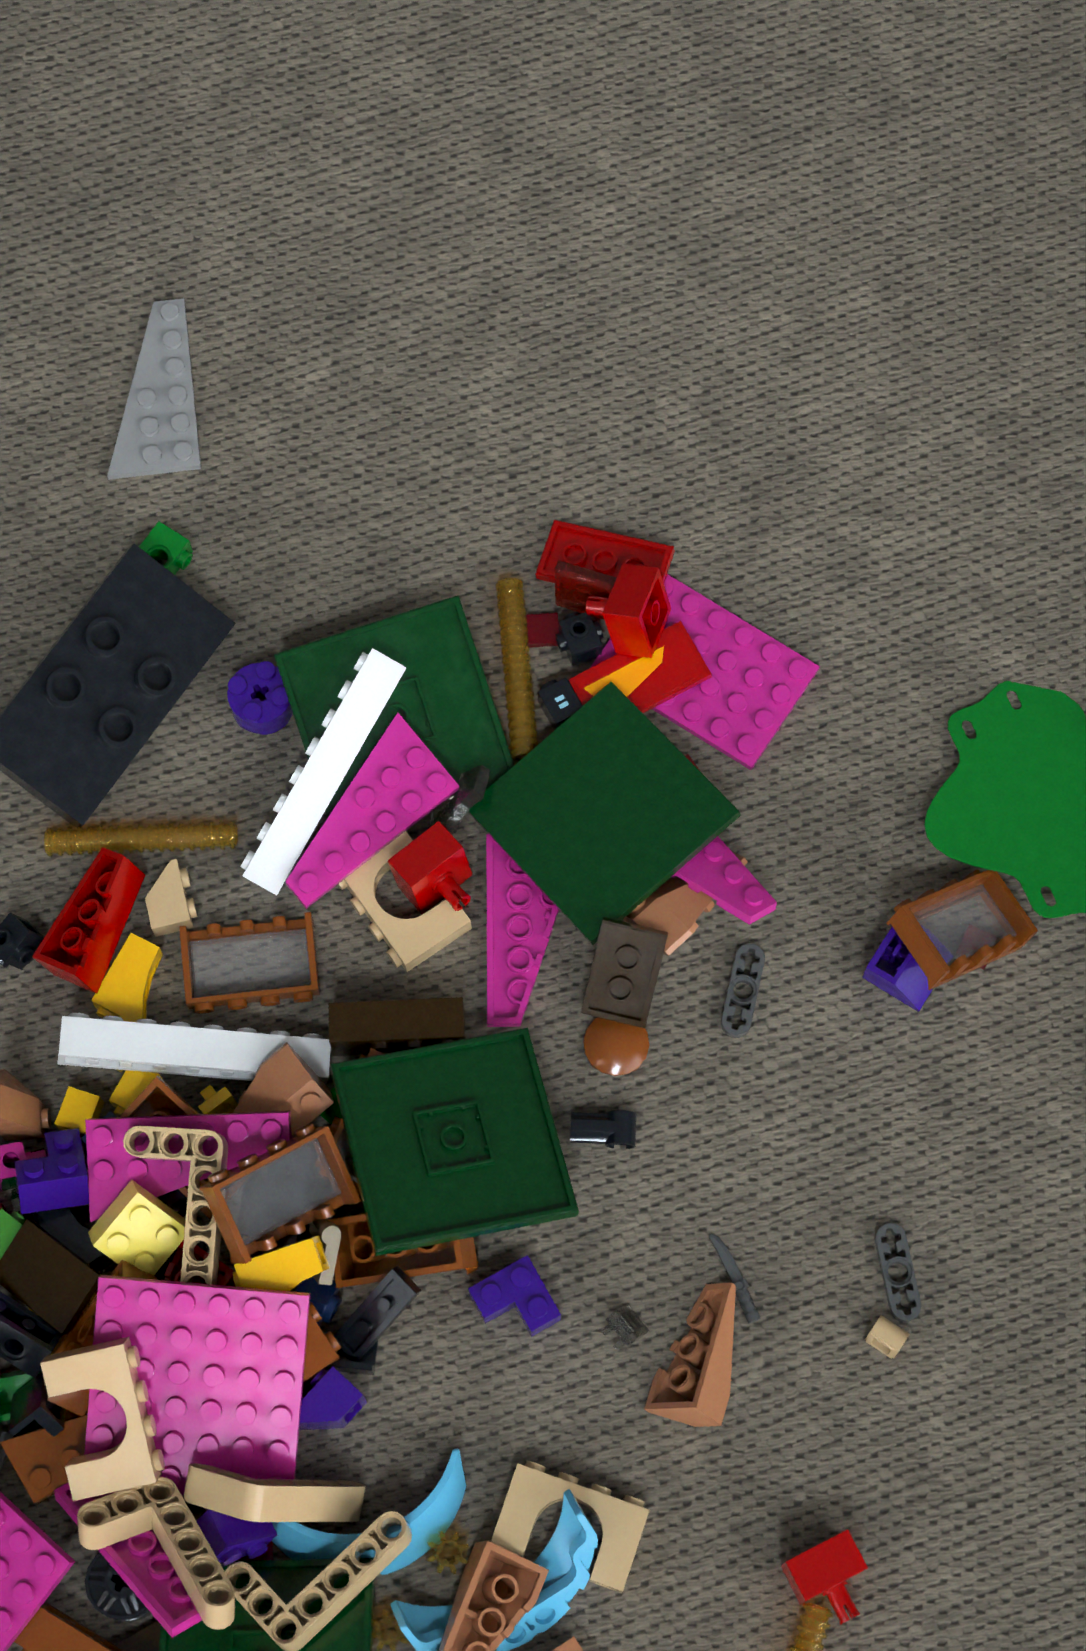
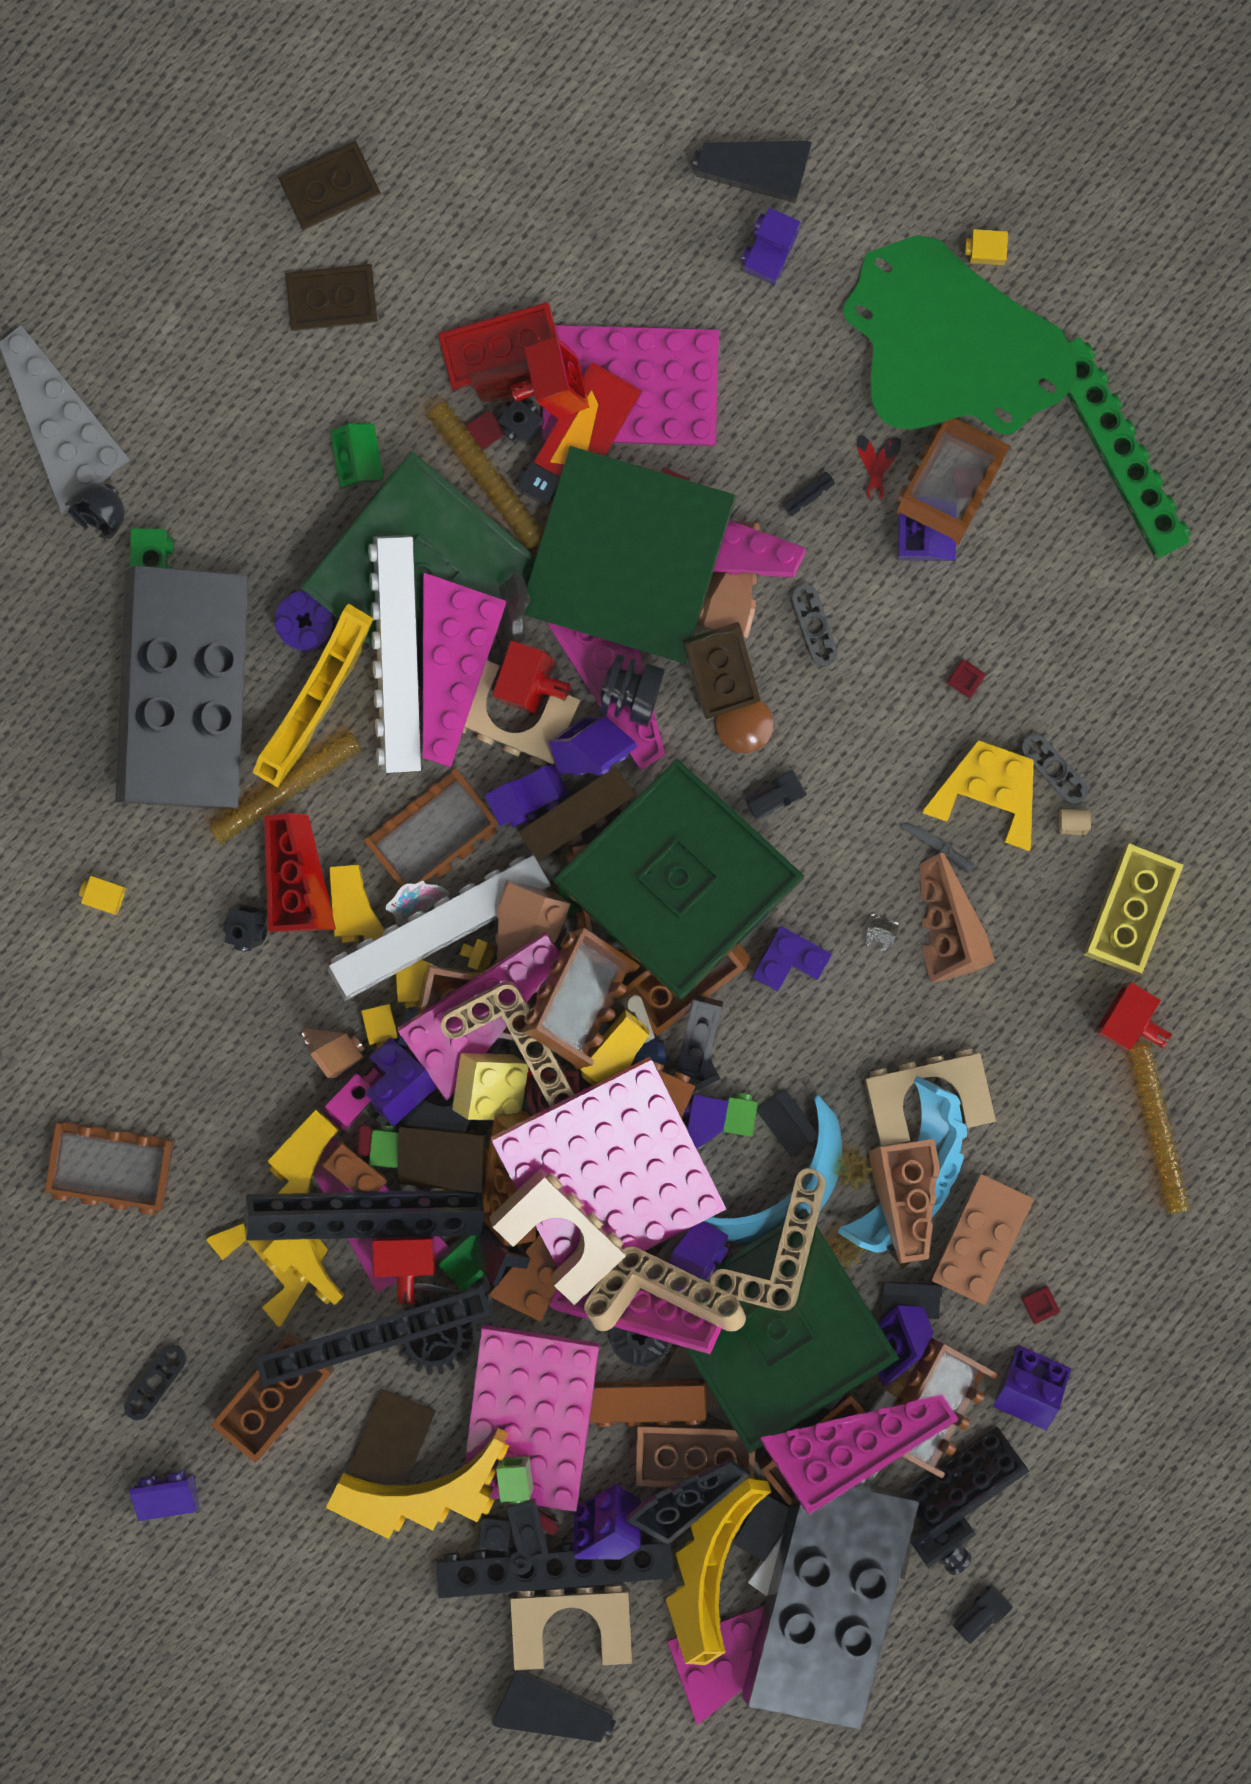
camera: 30 degrees left, 15 degrees up
(142, 483) = (97, 503): none -> black cylinder
(168, 901) = (339, 825): tan slope -> none
(190, 1008) = (414, 898): none -> sticker
(224, 771) = (315, 698): none -> yellow arch
(273, 1498) = (714, 1216): tan beam -> none
(351, 978) = (522, 799): none -> dark purple brick
(369, 1422) = (740, 1115): none -> bright green brick
(409, 579) = (356, 454): none -> green panel
(412, 1461) = (787, 1122): none -> black panel
(451, 968) = (590, 746): none -> dark purple slope
(477, 434) = (331, 297): none -> dark brown tile
(520, 933) = (631, 690): none -> black wheel
(539, 340) = (329, 185): none -> dark brown tile
(813, 865) = (808, 493): none -> black axle
(832, 1245) = (995, 779): none -> yellow wing
(861, 1131) = (966, 678): none -> dark red tile
(894, 1461) = (1133, 909): none -> light yellow brick
(896, 878) = (877, 466): none -> red piece
(922, 616) = (774, 240): none -> dark purple brick
(945, 542) = (759, 167): none -> black slope

